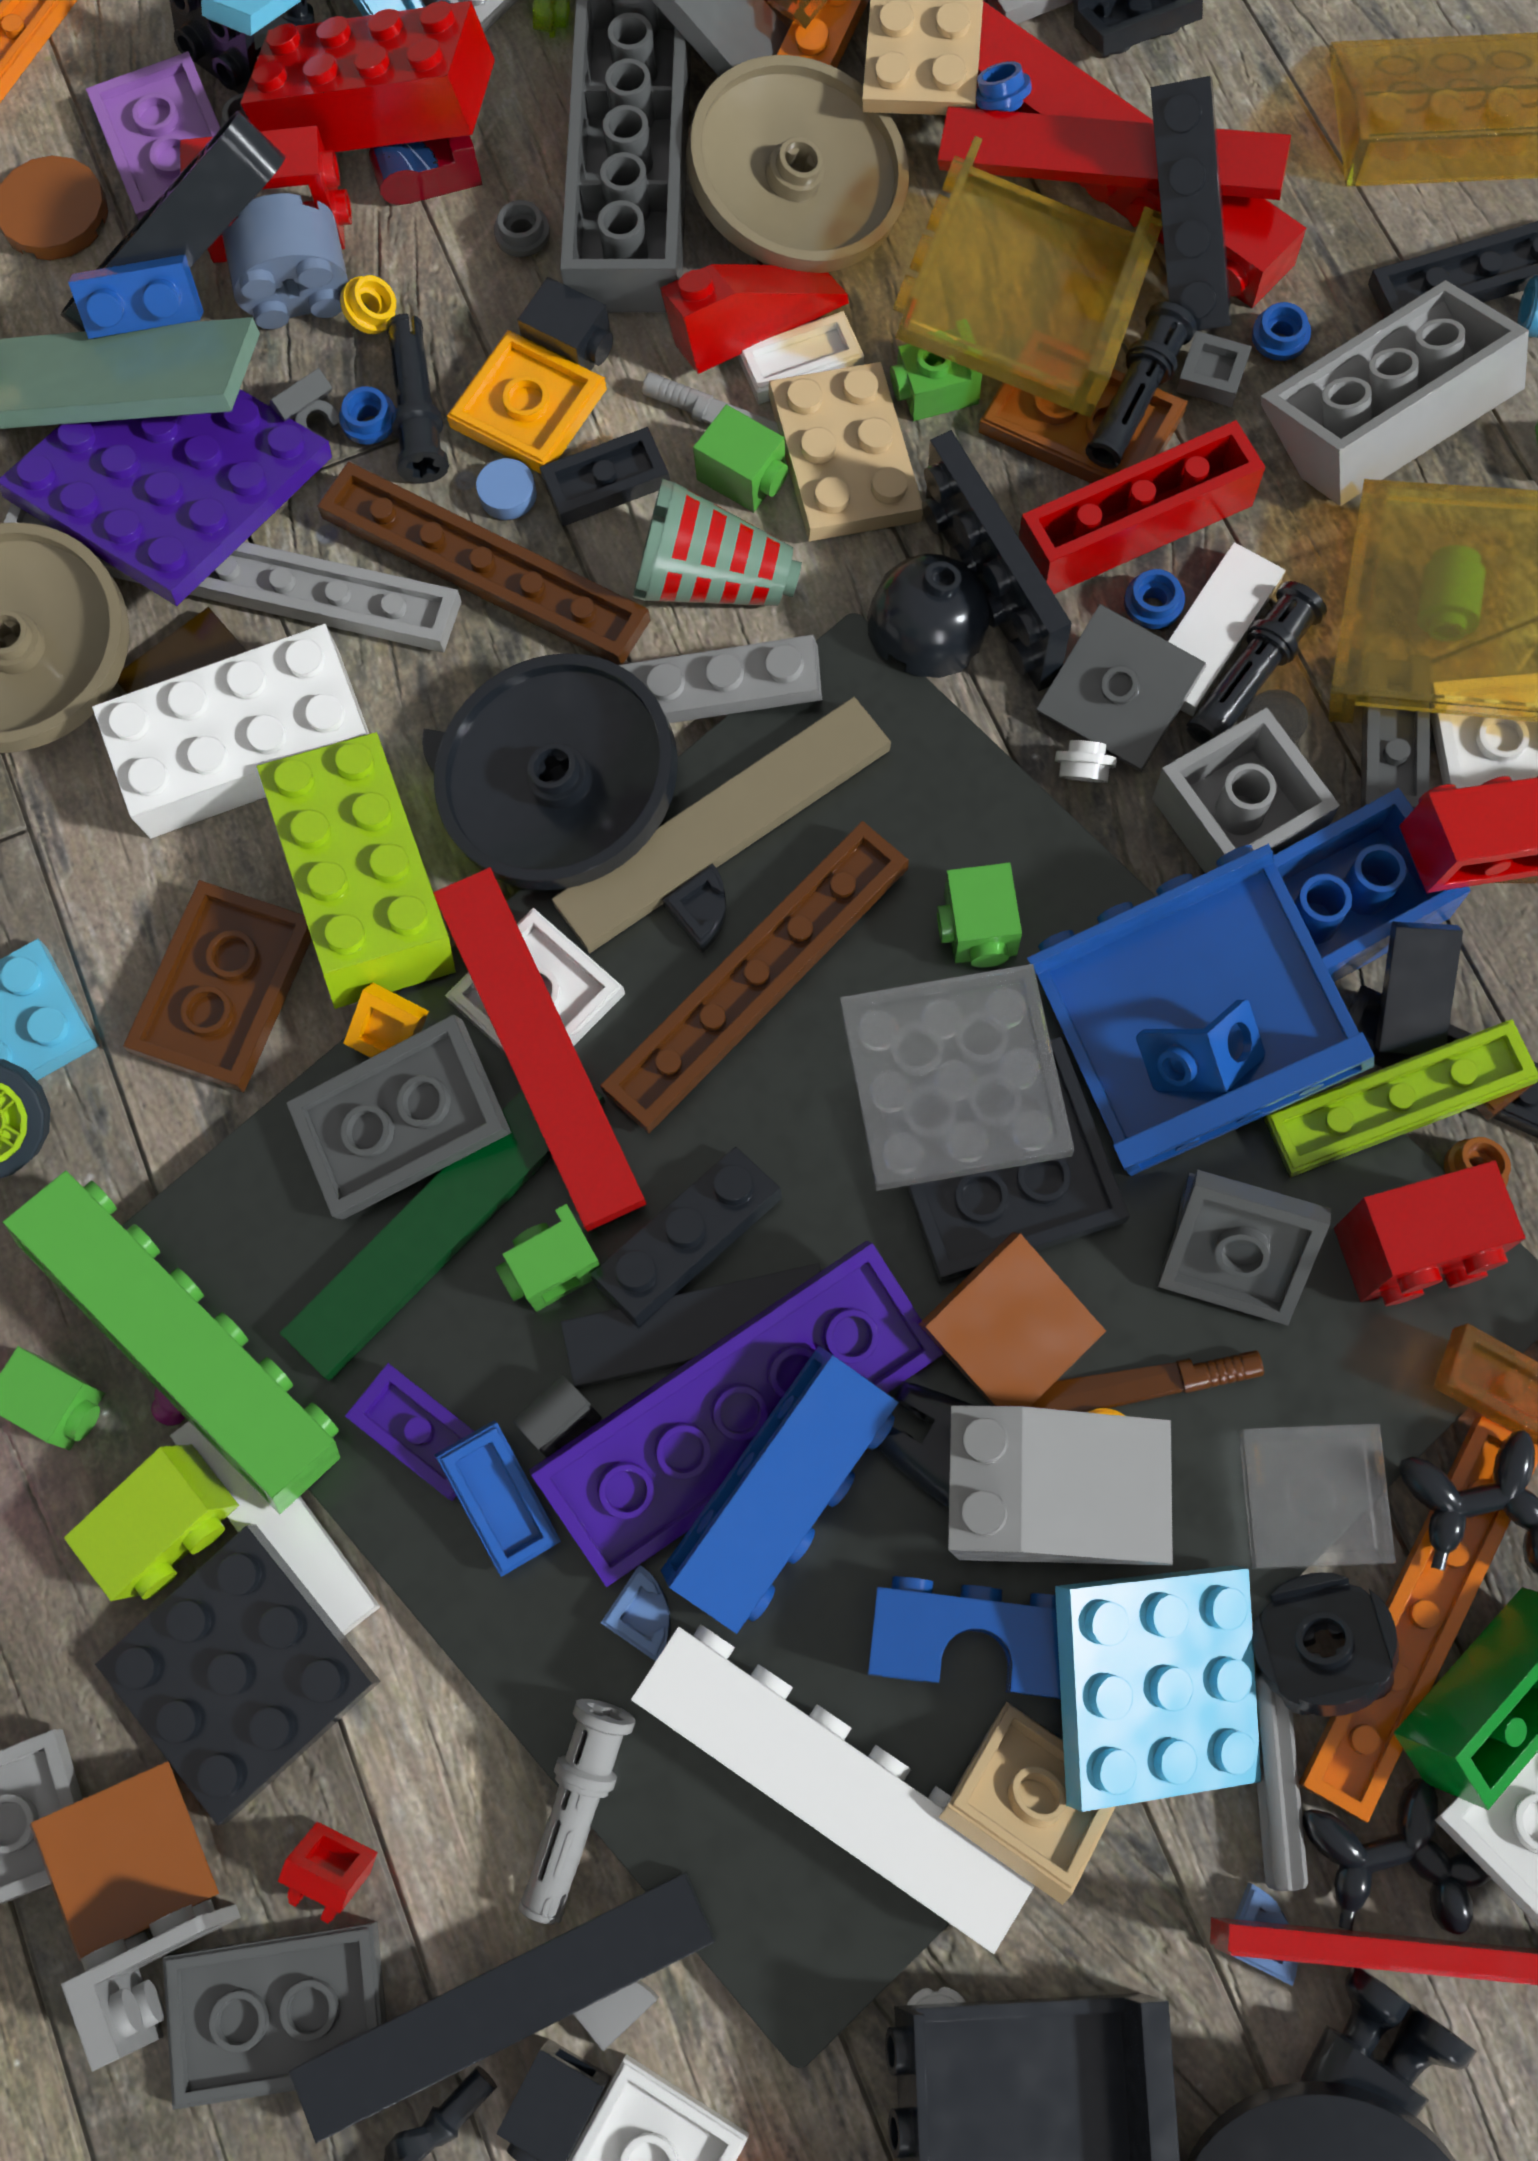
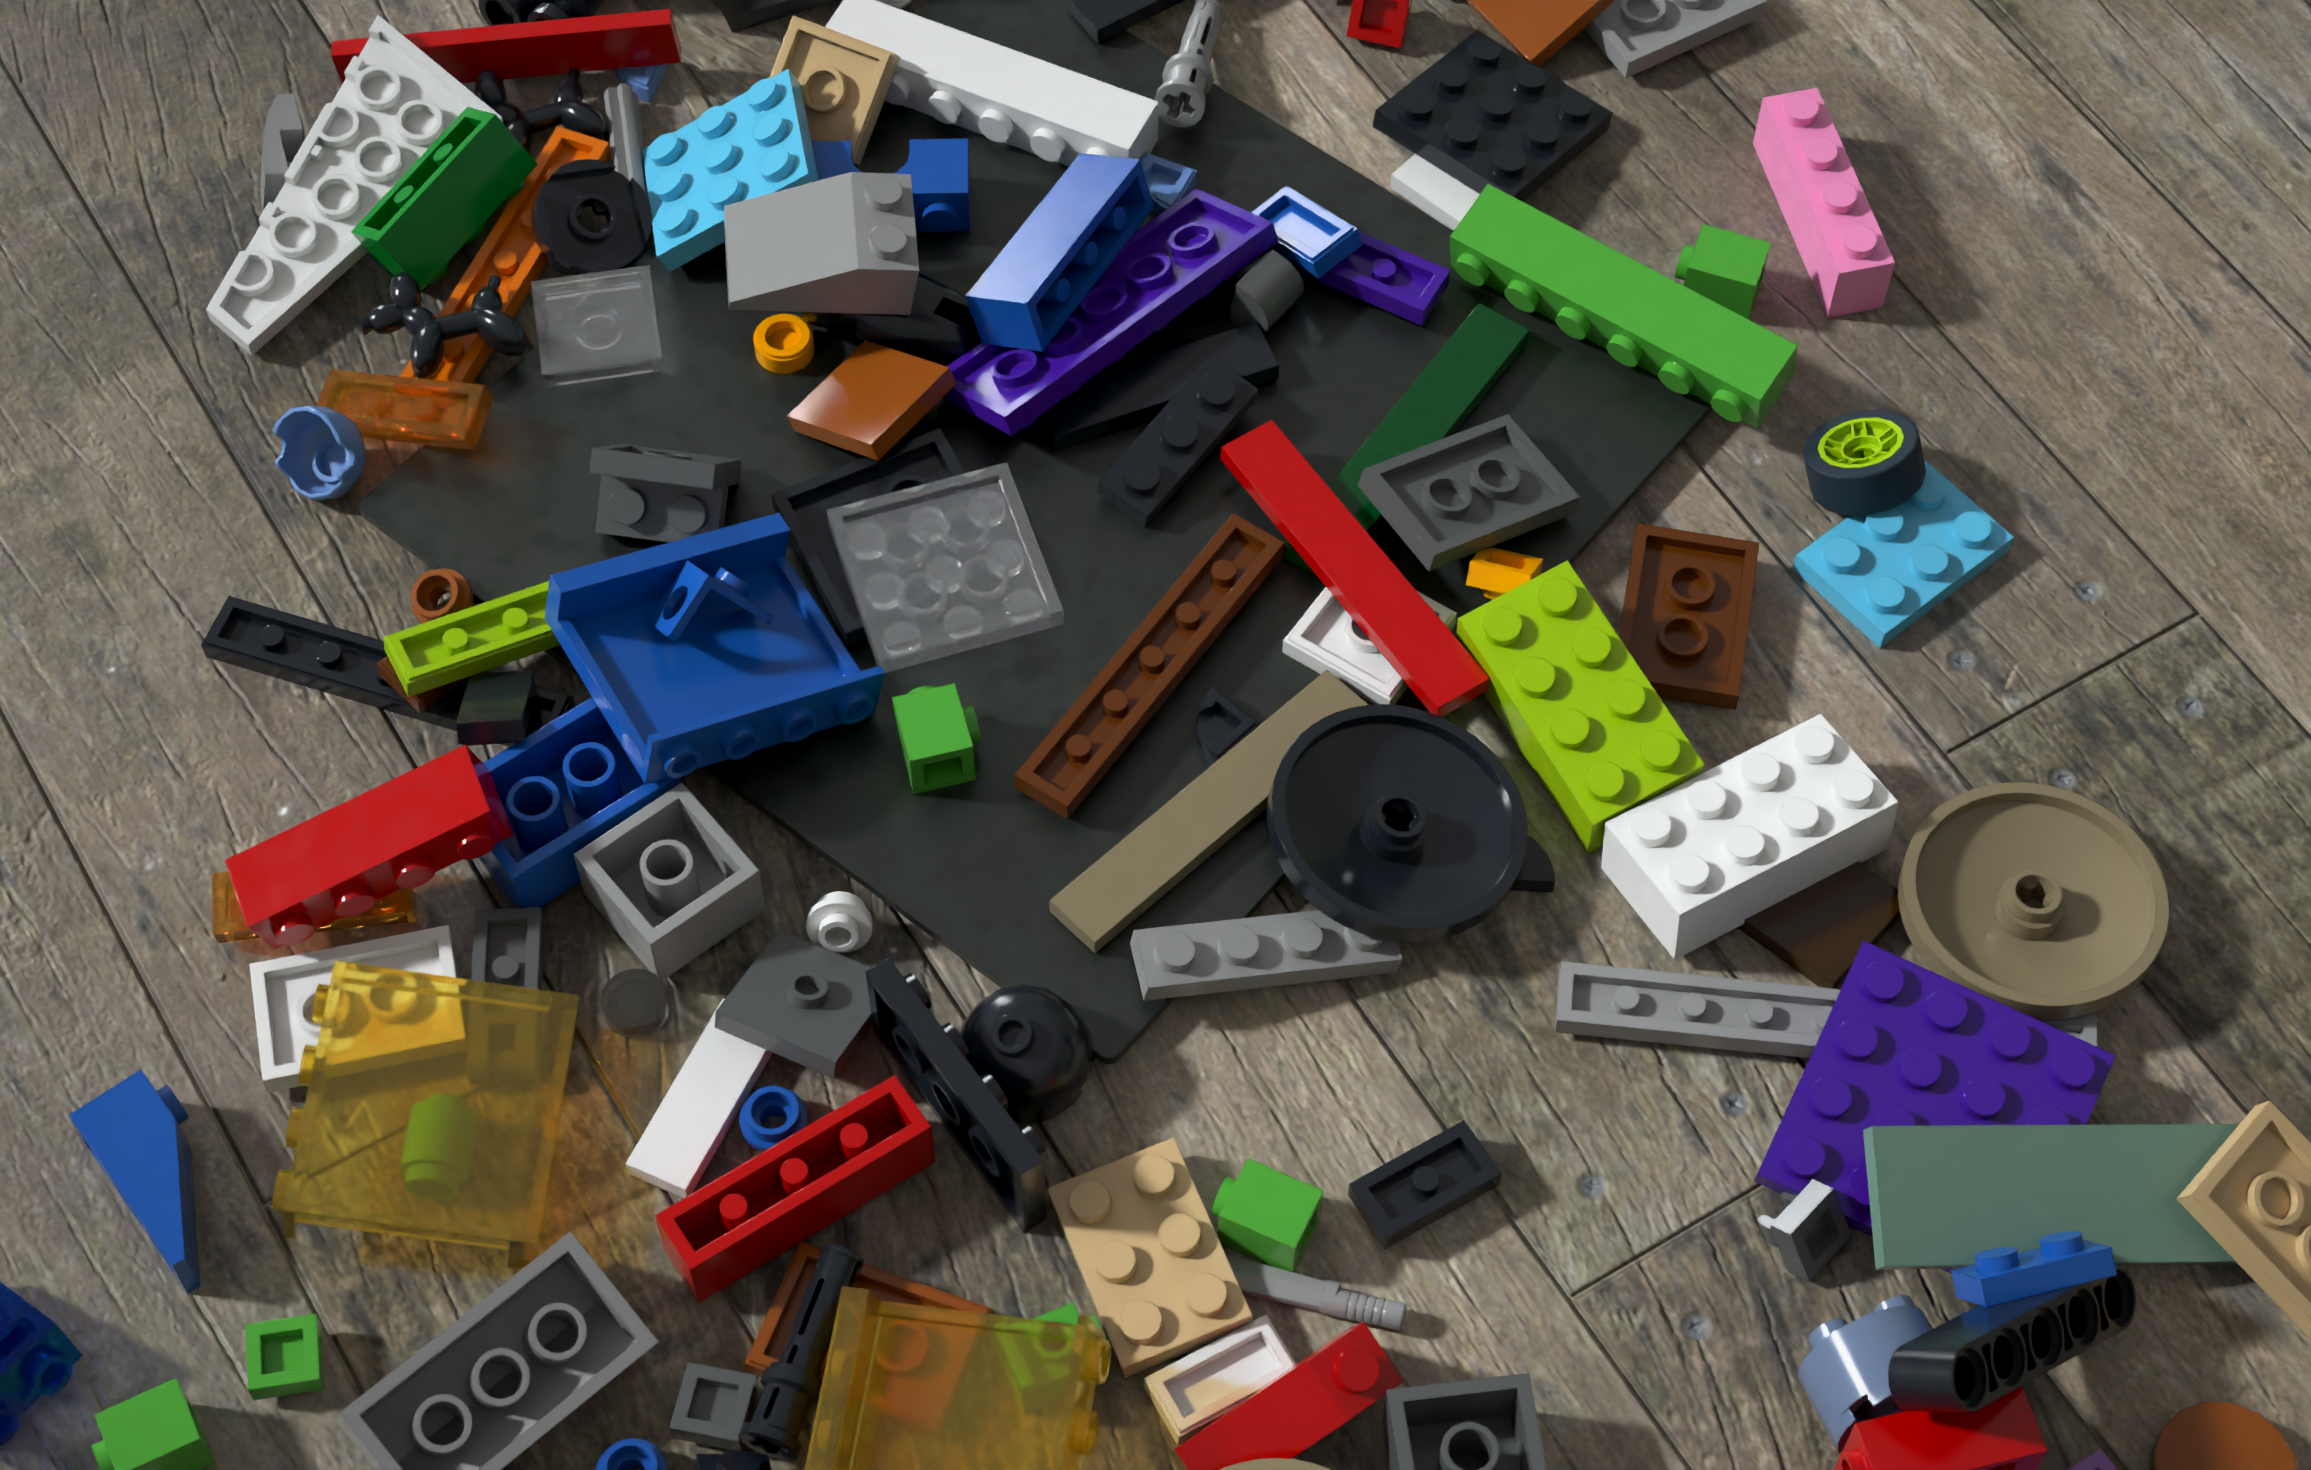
camera: 165 degrees right, 15 degrees down
(152, 1523) = (1598, 187): lime brick -> none
(361, 404) = (1726, 1215): blue plate -> none
(376, 295) = (1756, 1360): yellow plate -> none
(416, 418) = (1665, 1228): black pin -> none
(484, 563) = (1541, 1066): reddish brown plate -> none
(506, 489) = (1538, 1167): medium blue tile -> none
(526, 402) = (1539, 1267): light orange plate -> none
(548, 1262) = (1299, 399): bright green brick -> none
(567, 324) = (1513, 1344): black brick -> none
(711, 555) = (1282, 1079): sand green cone -> none
(1149, 1382) = (744, 391): reddish brown piece -> none
(1270, 644) = (642, 1076): black pin -> none
(1428, 1233) = (499, 490): red brick -> none

